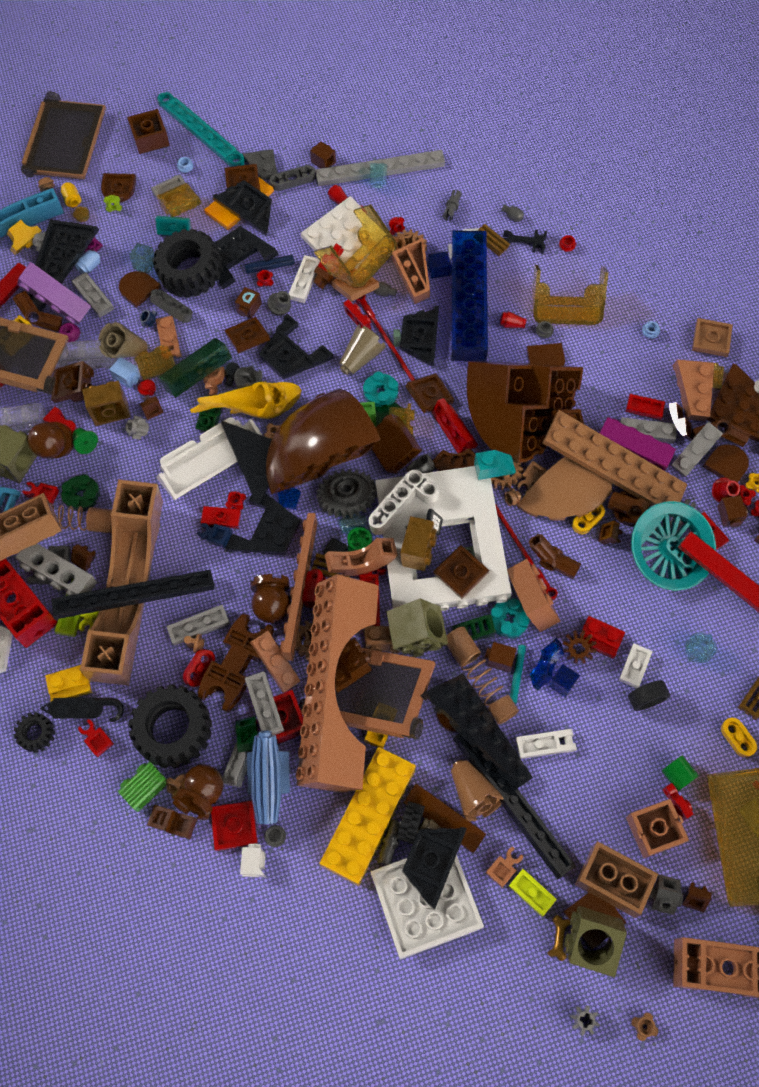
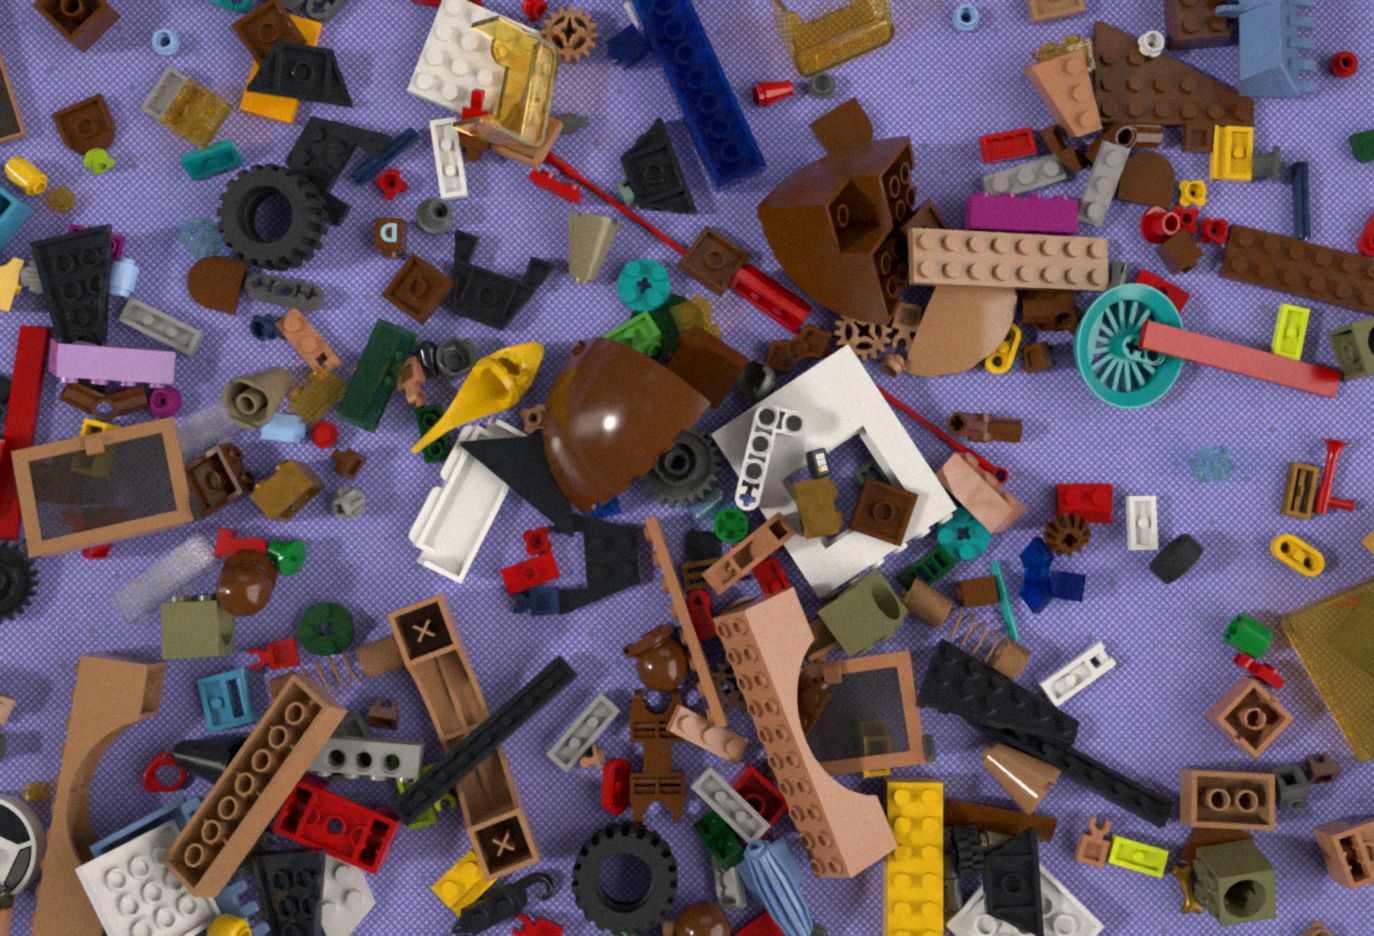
camera: 30 degrees left, 20 degrees up
(413, 269) = (601, 79): nougat wedge -> none
(493, 464) = (859, 345): teal slope -> none

